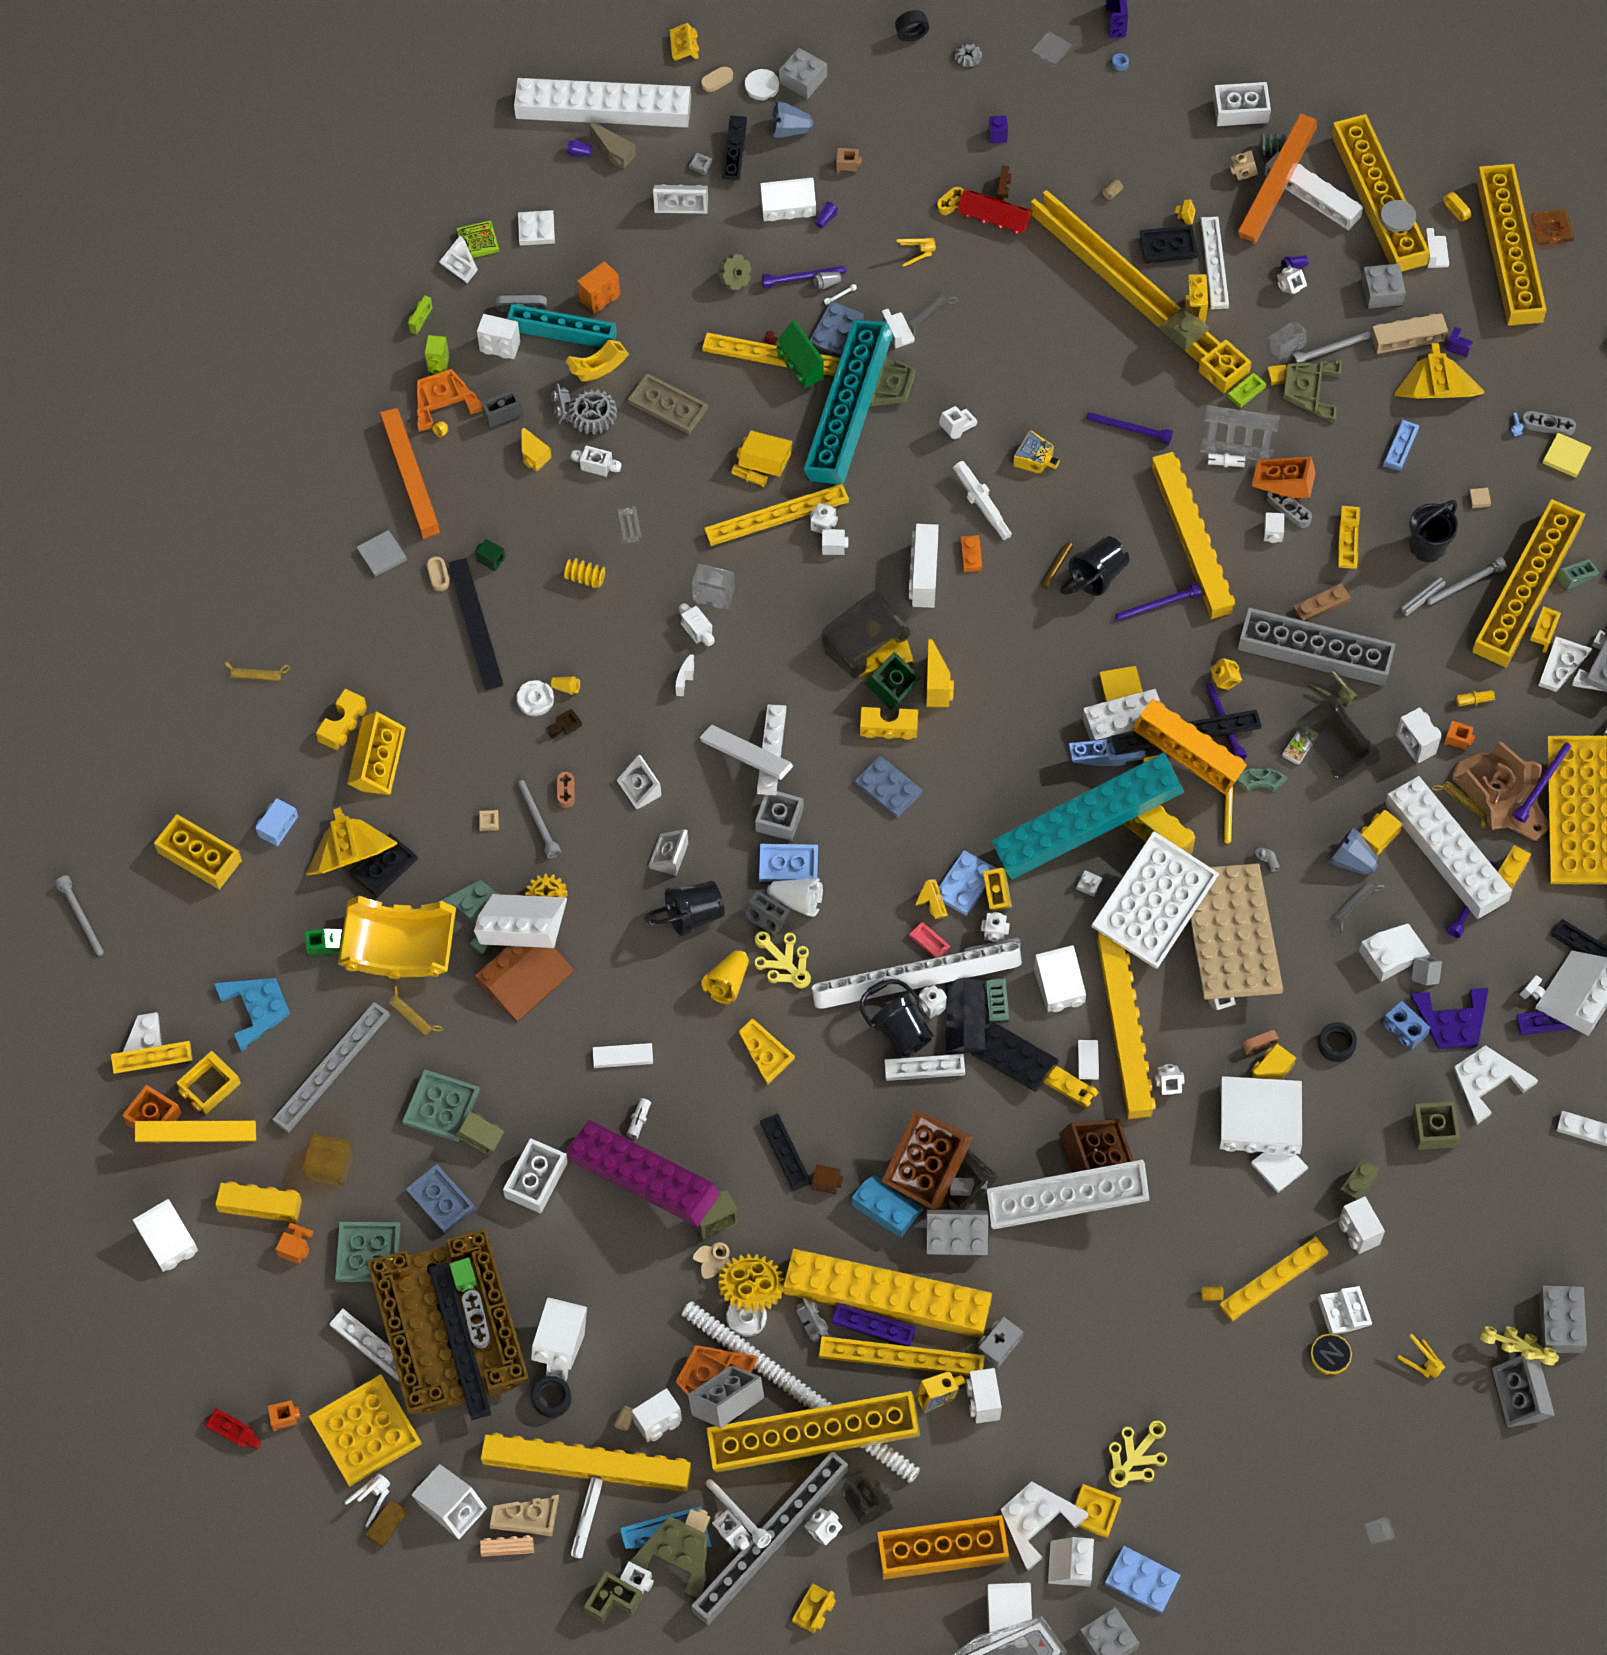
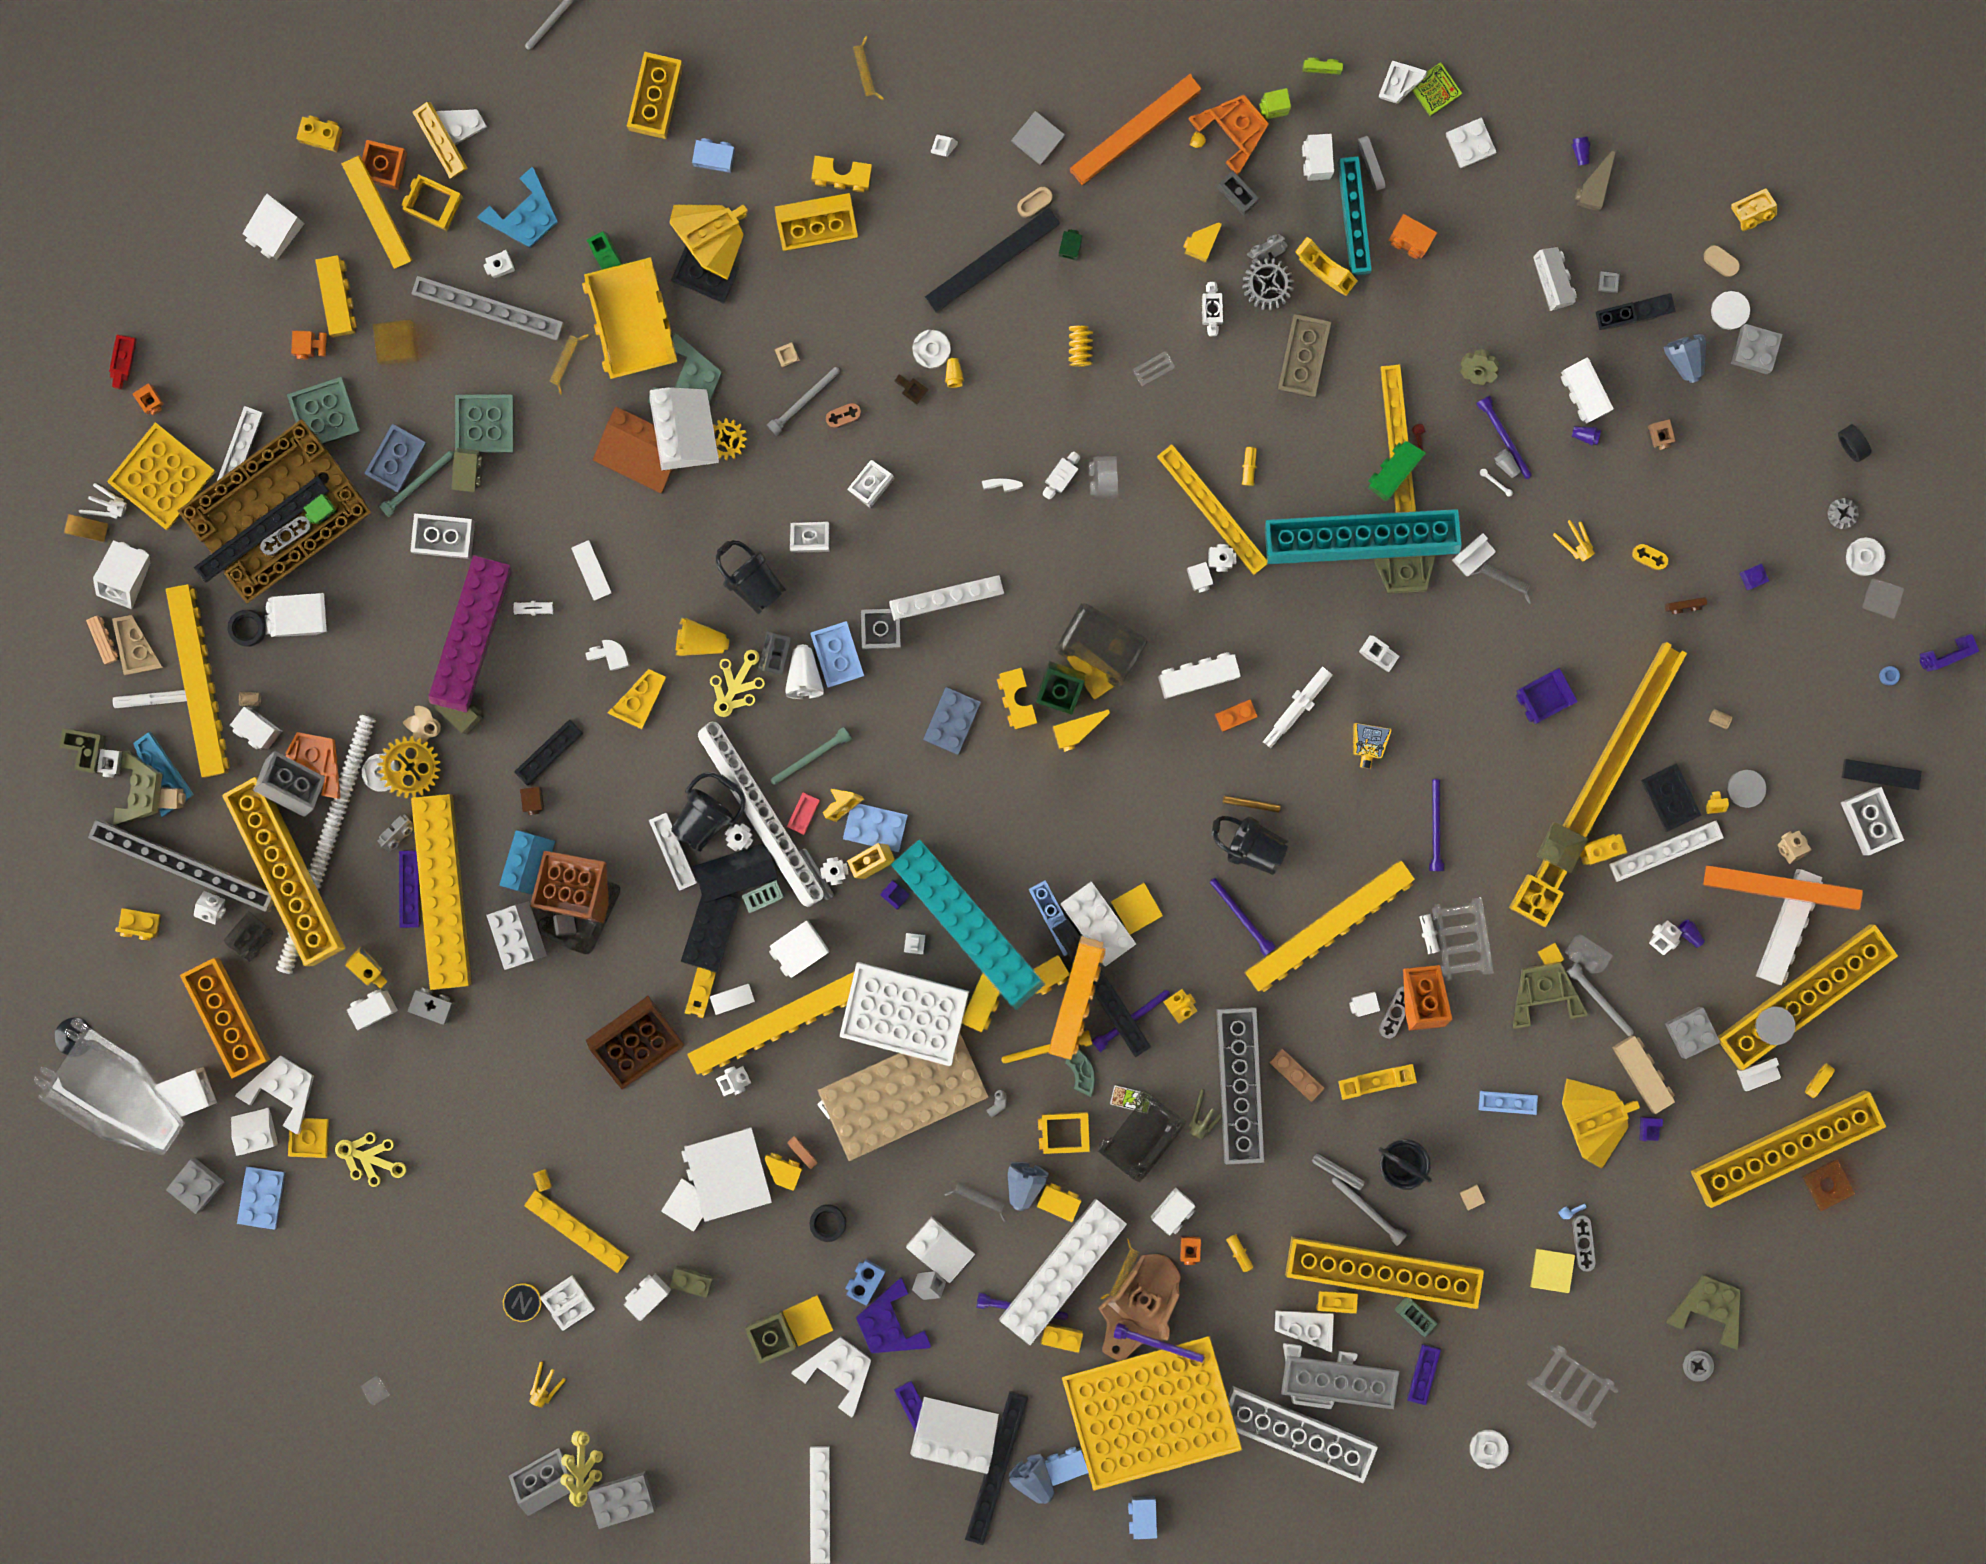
camera: 70 degrees right, 25 degrees up
(95, 1165) = (319, 133): none -> yellow brick
(296, 1035) = (505, 267): none -> white brick
(353, 631) = (943, 145): none -> white slope
(485, 1221) = (389, 506): none -> sand green piece
(602, 102) = (1647, 153): white brick -> none
(711, 1058) = (613, 651): none -> white brick
(731, 1530) = (175, 838): white piece -> none
(746, 752) = (931, 575): white tile -> none
(760, 1536) = (172, 859): white piece -> none
(764, 453) = (1275, 473): yellow brick -> none
(834, 329) = (1452, 492): sand blue plate -> none
(868, 882) = (841, 737): none -> sand green piece
(900, 1356) = (388, 923): yellow plate -> none
(995, 211) = (1648, 607): red brick -> none
(1011, 50) = (1865, 556): none -> white tile
(1036, 886) = (894, 894): none -> dark purple panel
(1044, 309) = (1546, 696): none -> dark purple panel
(1068, 1194) = (581, 1025): white plate -> none
(1180, 188) = (1746, 788): none -> light grey tile
(1203, 90) = (1881, 774): none -> black tile
(1247, 390) = (1519, 930): lime plate -> none
(1270, 144) = (1833, 870): sand green piece -> none
(1318, 791) = (1042, 1125): none -> yellow window
(1428, 1087) = (807, 1320): none -> yellow tile
(1533, 989) = (943, 1388): white tile -> none

